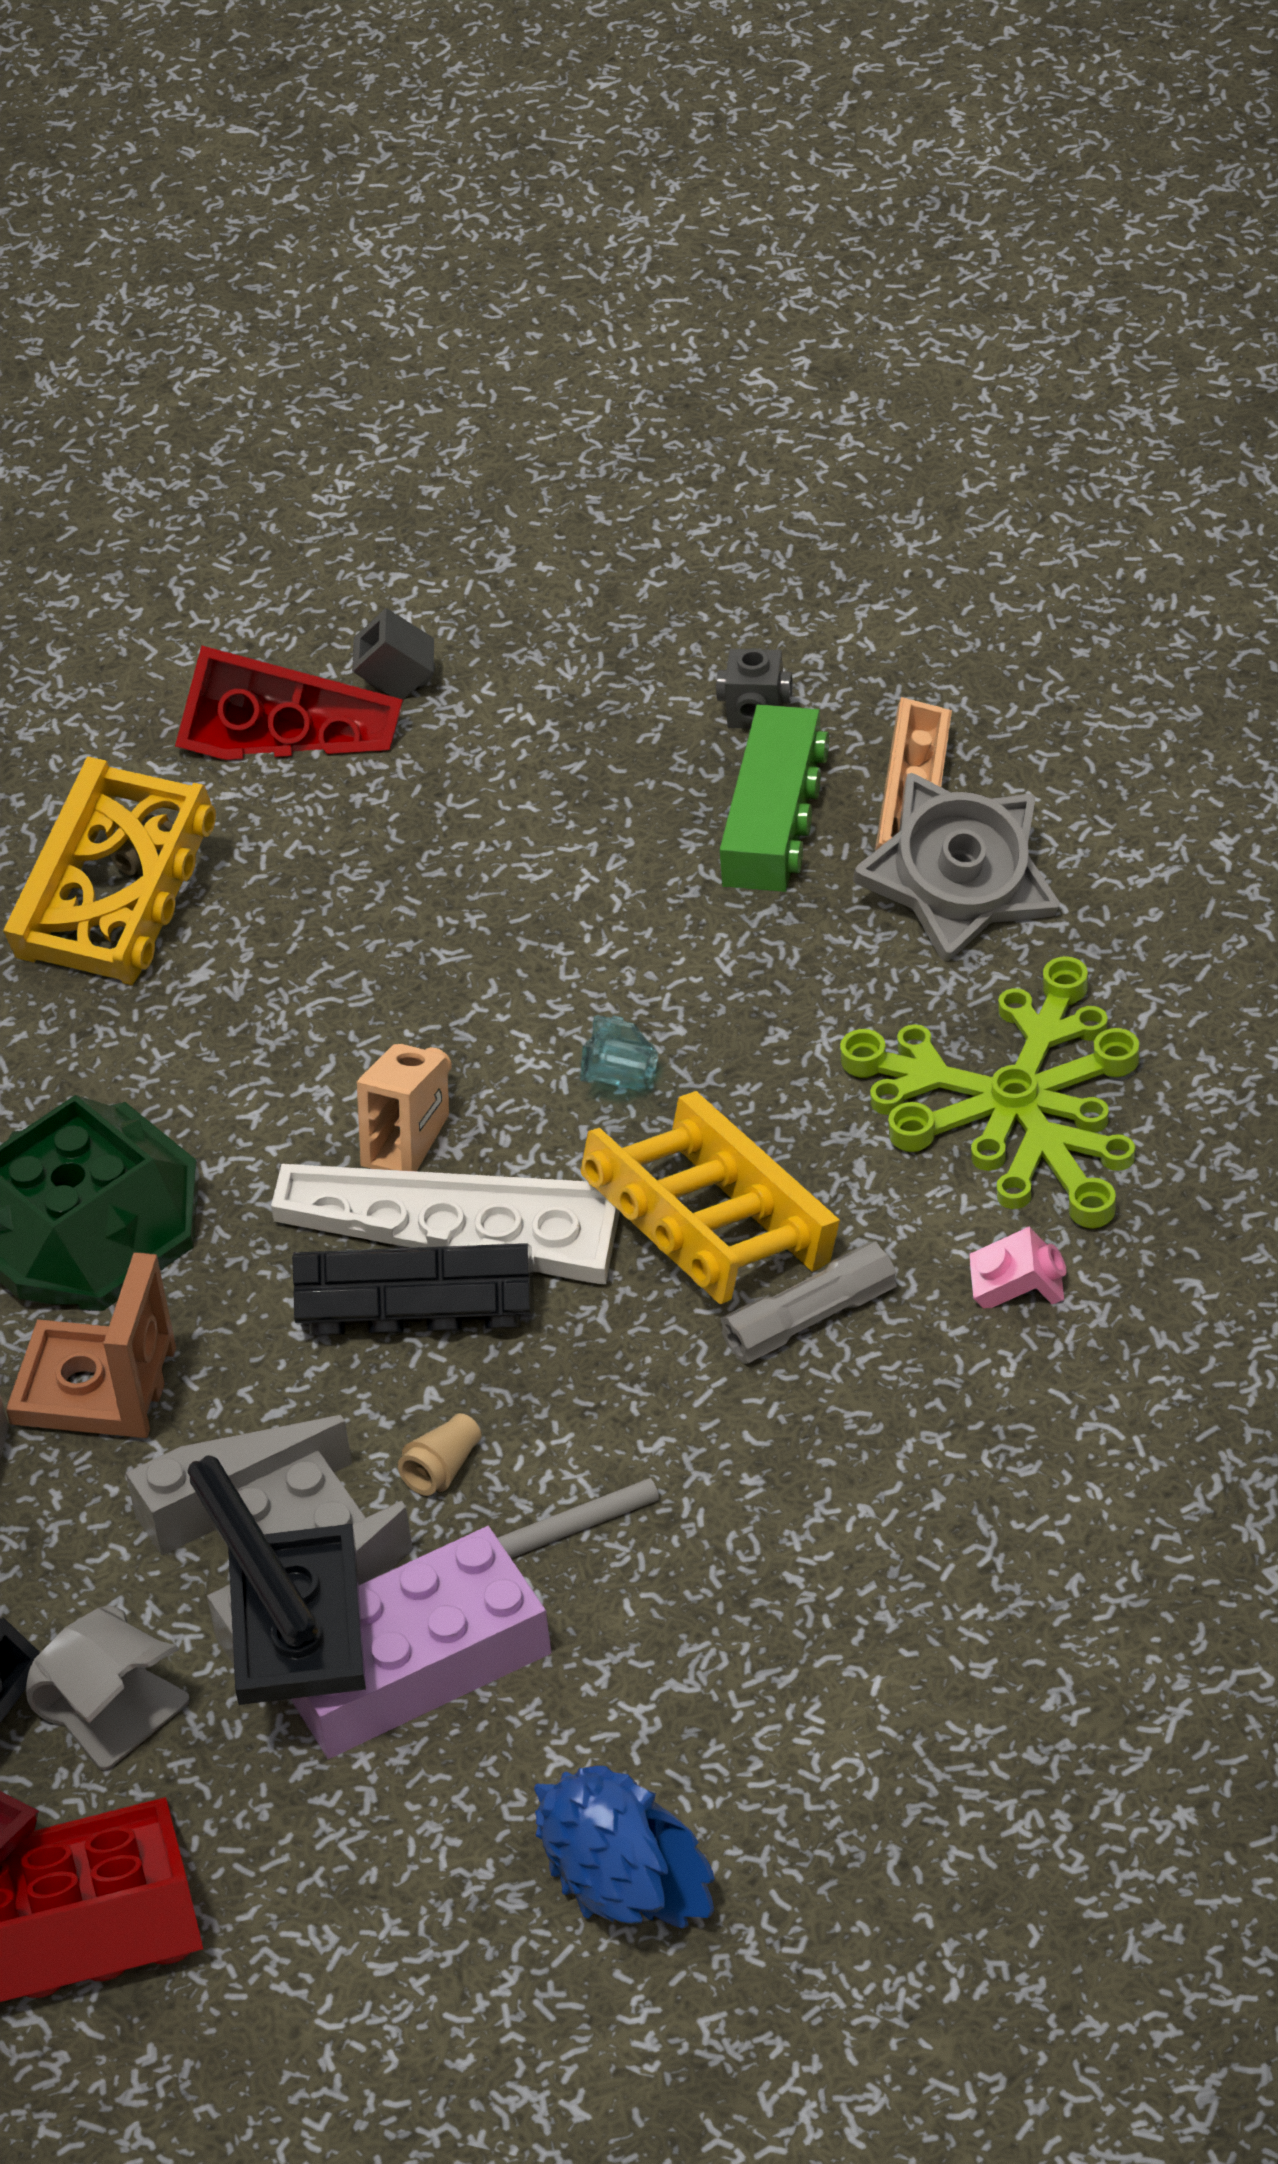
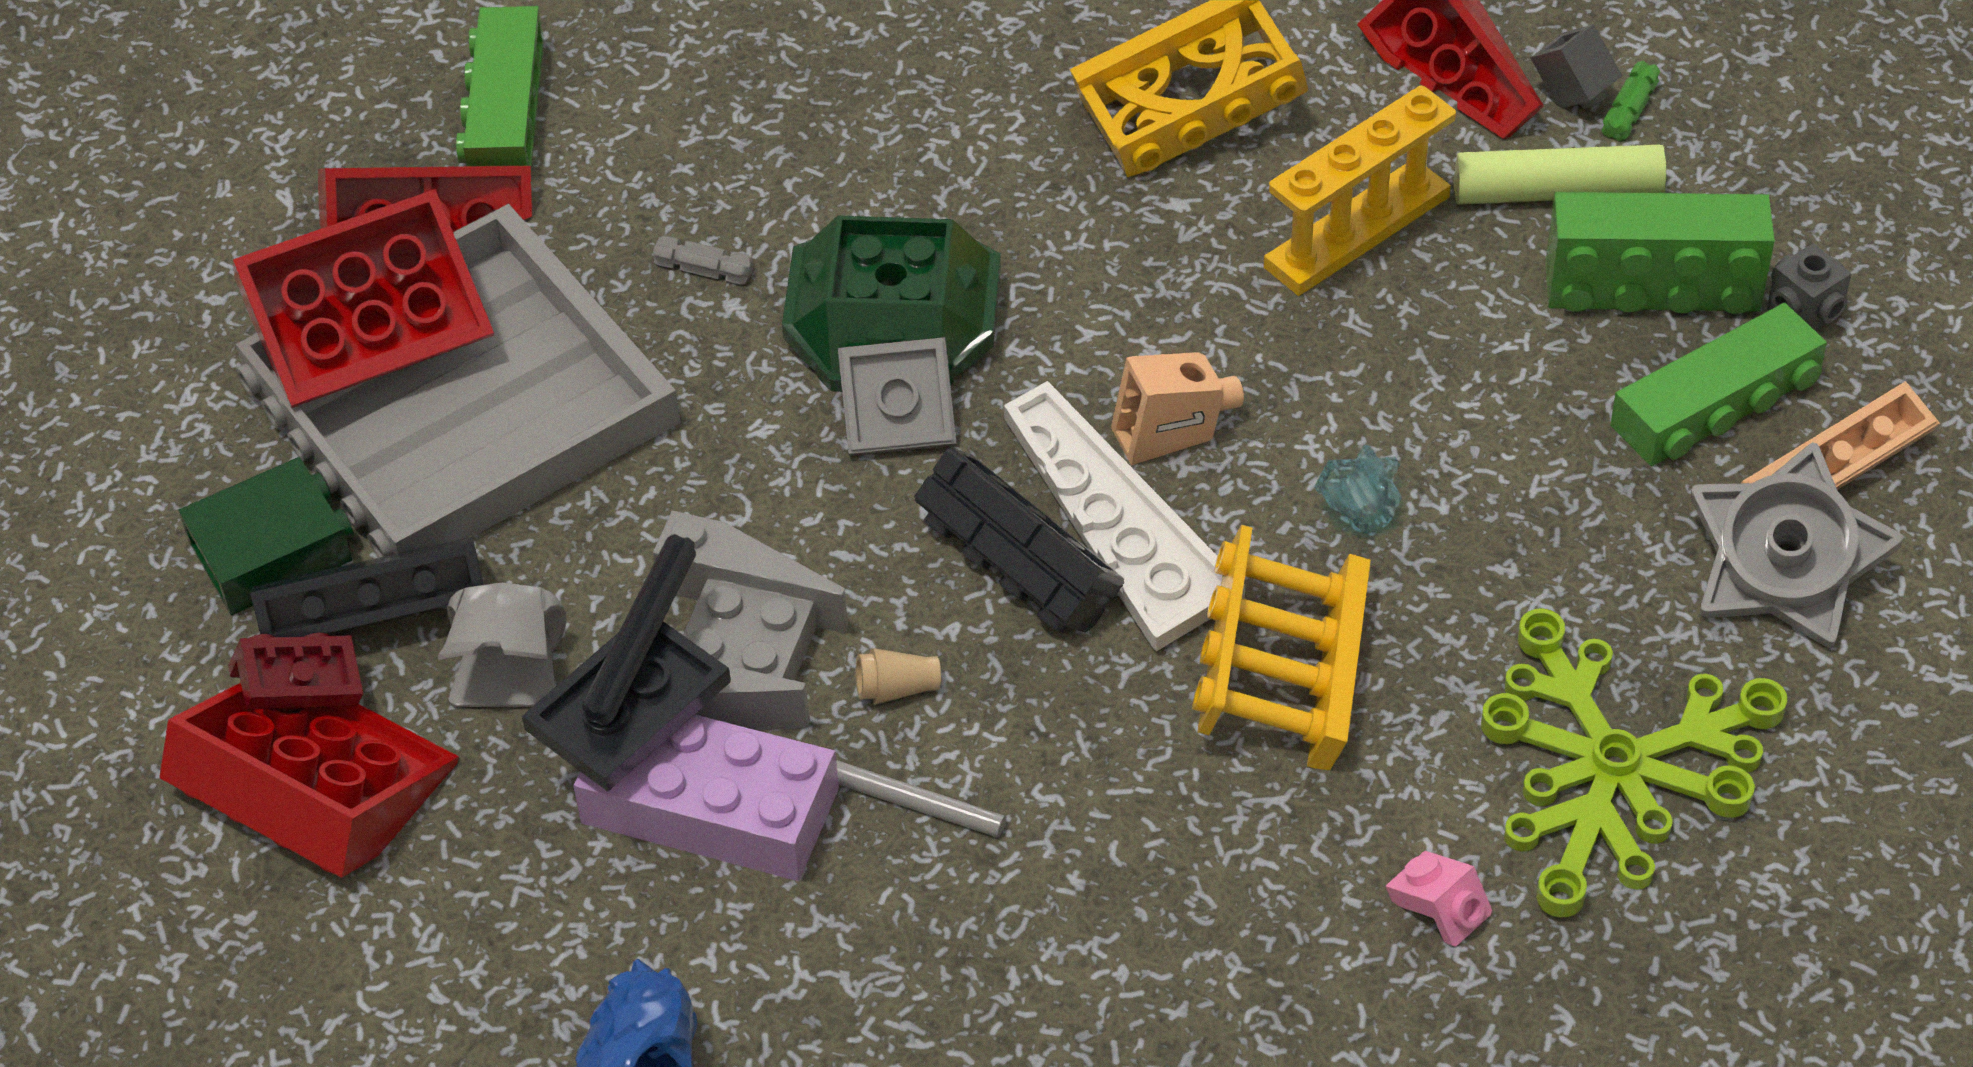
camera: 45 degrees right, 5 degrees up
(122, 1356) = (764, 423): nougat bracket -> none
(195, 1257) = (897, 396): none -> light grey tile
(357, 849) = (1375, 213): none -> yellow fence
(453, 656) = (1630, 101): none -> bright green axle
(473, 740) = (1542, 172): none -> yellowish green brick
(625, 735) = (1659, 251): none -> bright green brick
(843, 1284) = (1309, 794): light grey axle -> none

